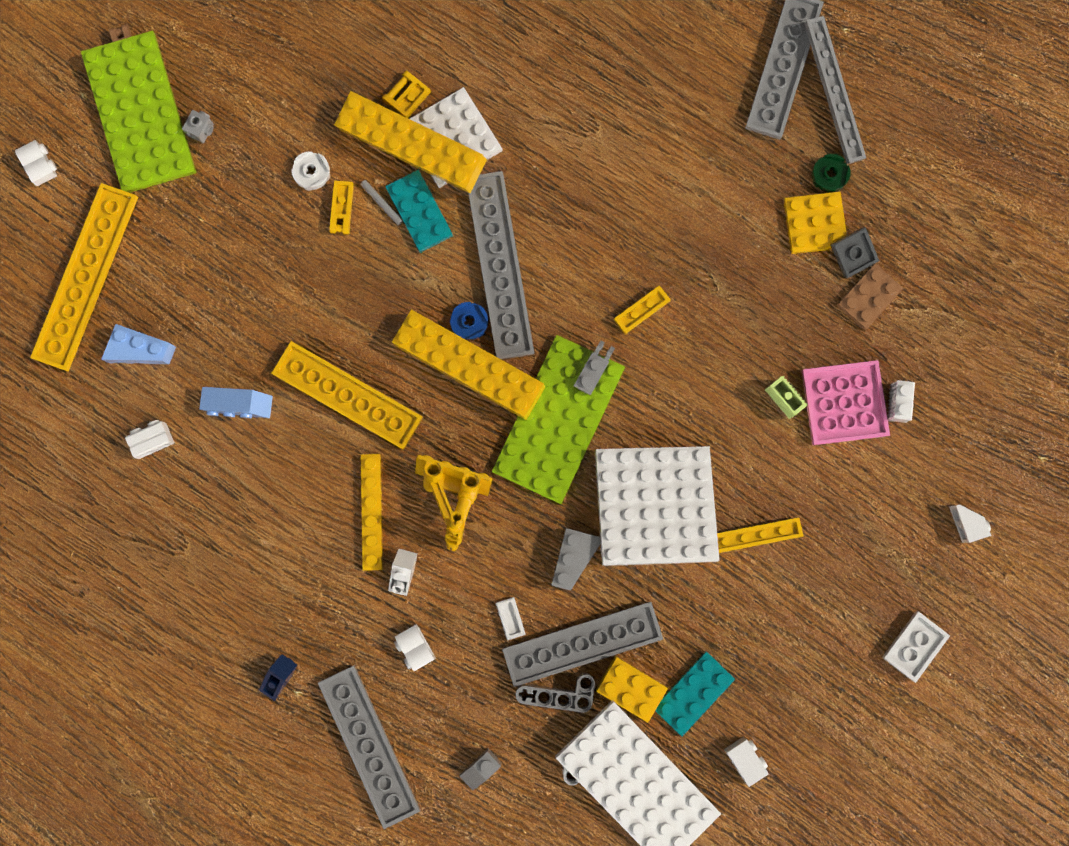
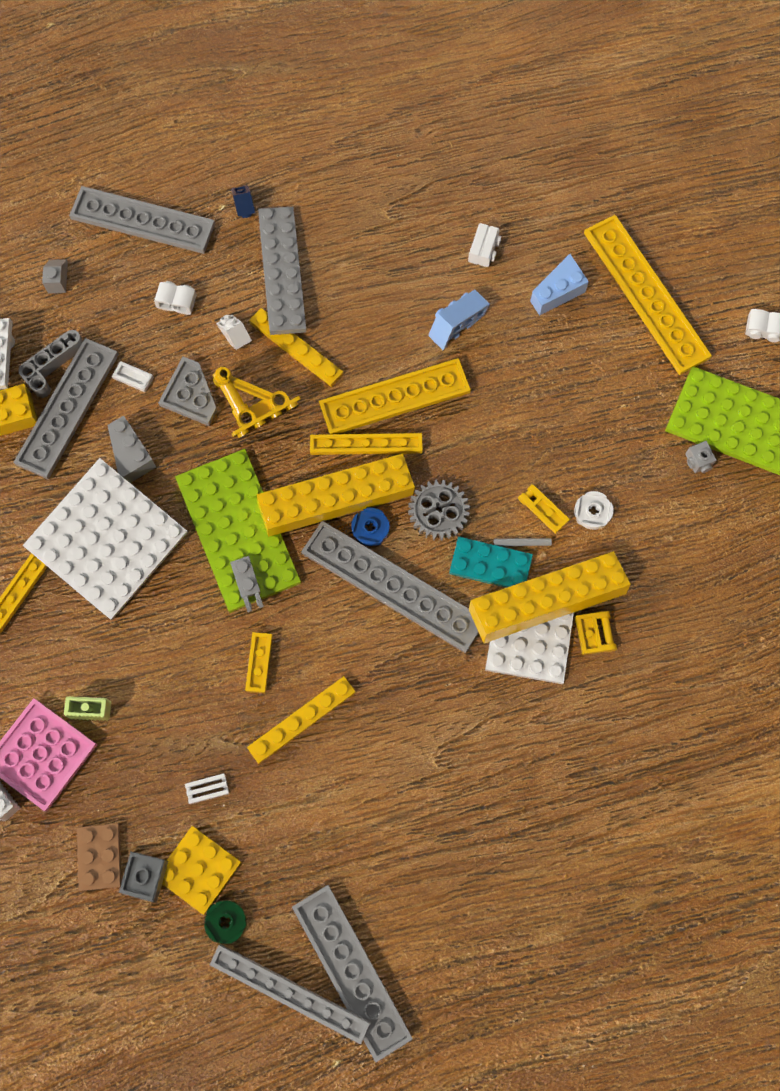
camera: 135 degrees right, 10 degrees down
(314, 584) = (281, 271): none -> light grey plate
(405, 382) = (366, 444): none -> yellow plate
(419, 267) = (432, 495): none -> light grey gear
(484, 558) = (189, 393): none -> light grey plate
(653, 244) = (301, 720): none -> yellow plate
(763, 260) = (203, 781): none -> white tile

